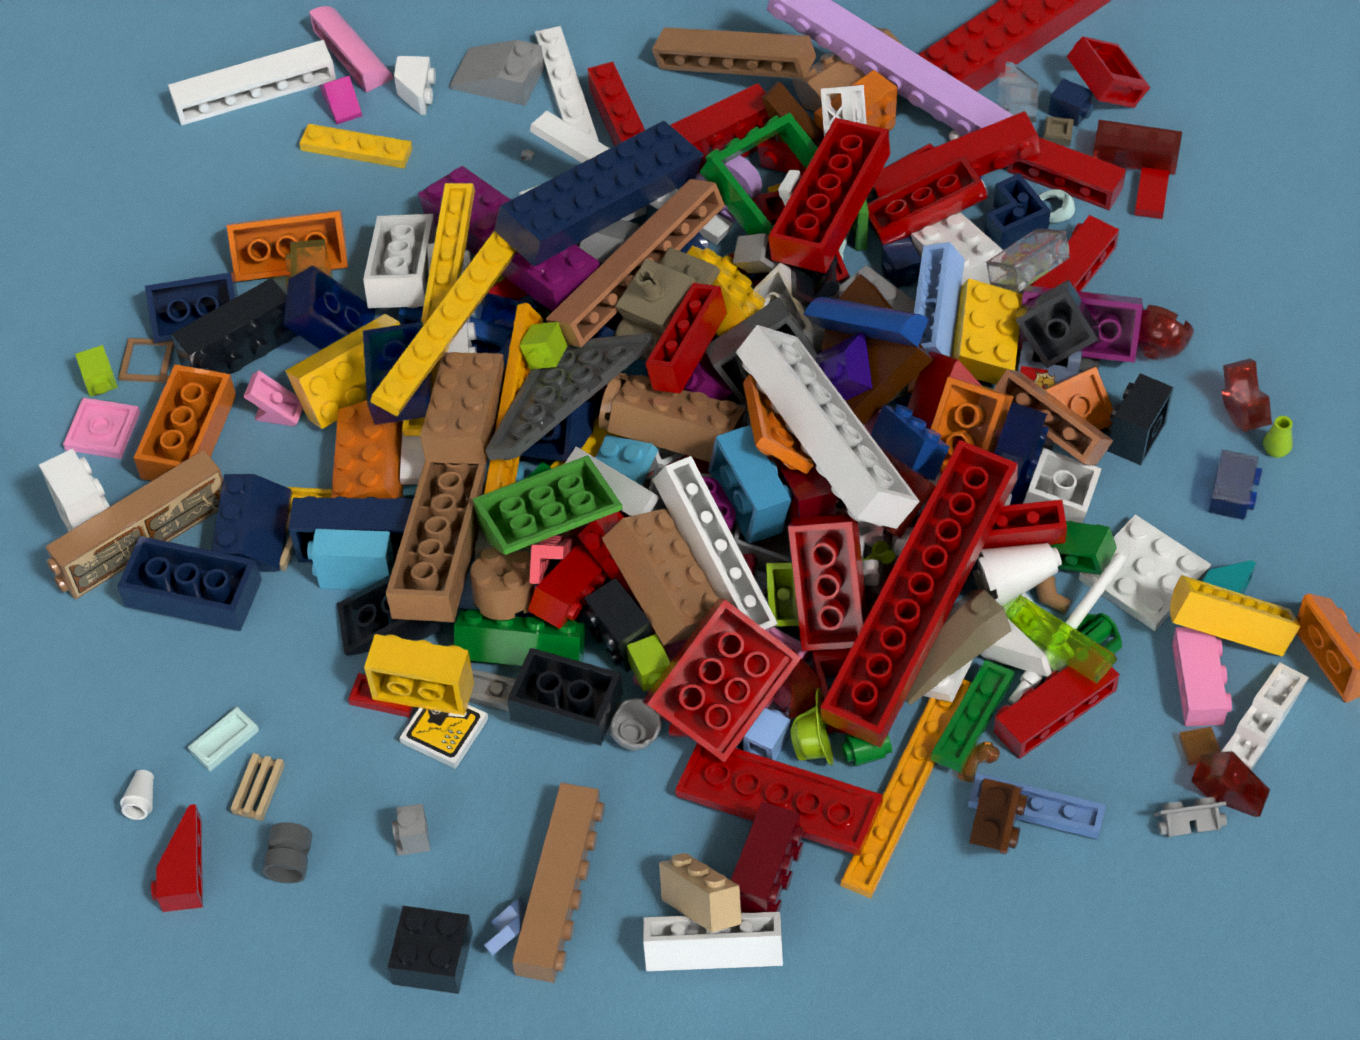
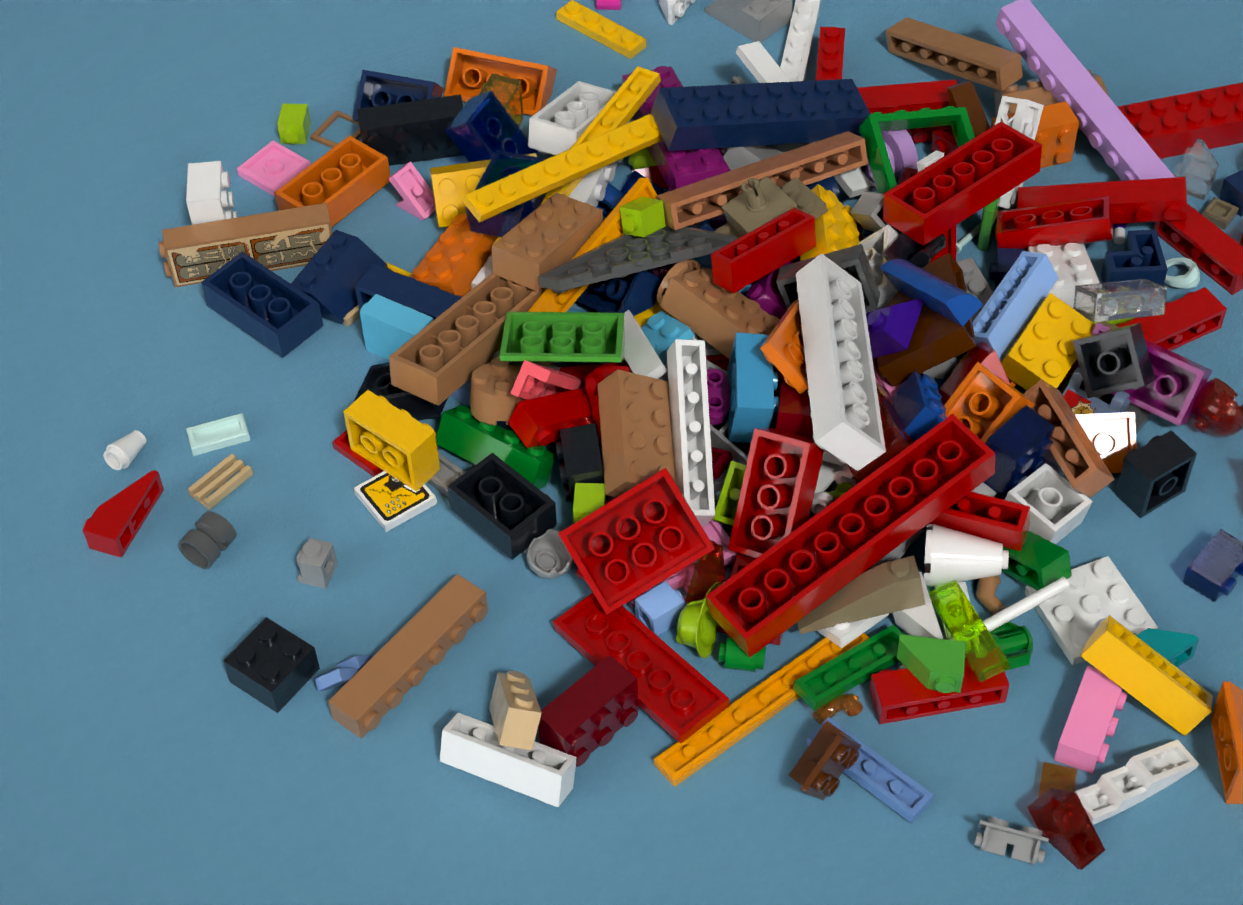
camera: 25 degrees right, 5 degrees down
(1049, 682) = (934, 661): none -> bright green slope

